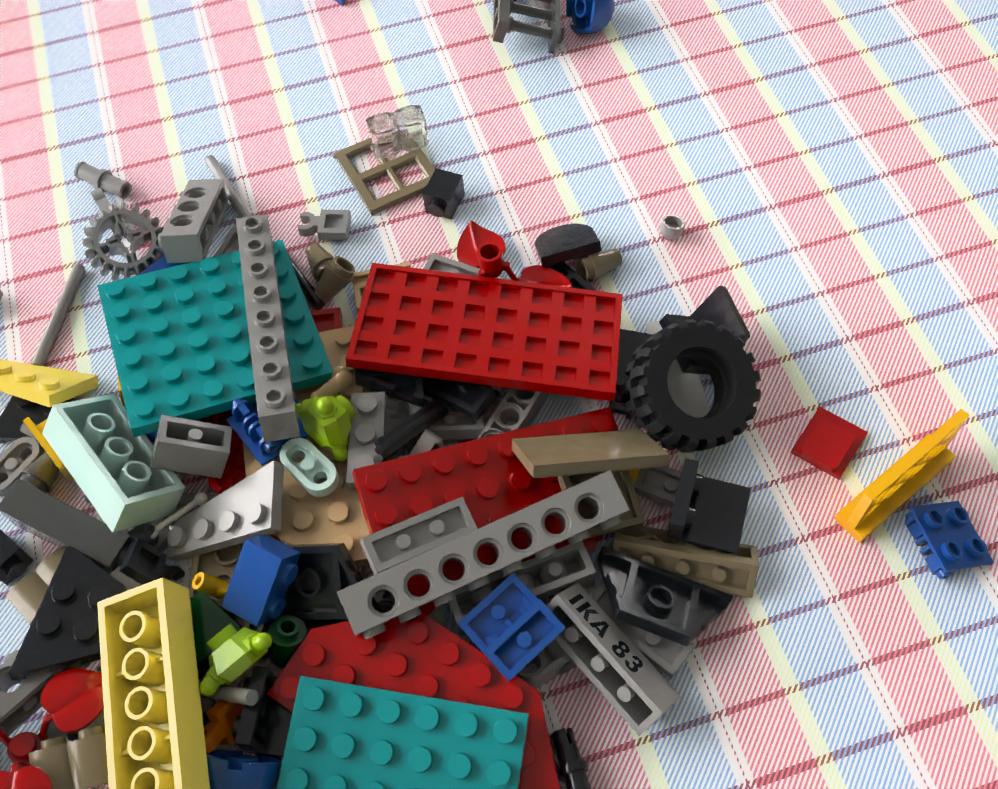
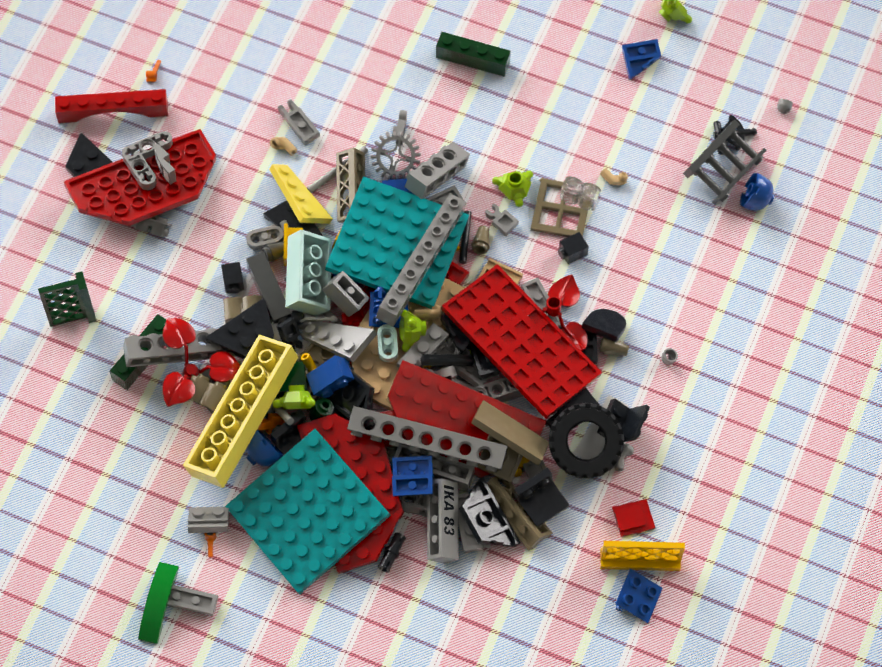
camera: 35 degrees right, 5 degrees up
(80, 291) = (356, 169): none -> dark tan fence
(103, 179) = (412, 104): light grey pin -> none
(135, 84) = (473, 54): none -> dark green brick
(232, 194) = (470, 164): light grey bar -> none
(308, 179) = (514, 185): none -> lime rock
(334, 278) = (480, 254): dark tan cone -> none
(417, 535) = (406, 409): light grey plate -> none
(423, 99) = (612, 179): none -> tan arm

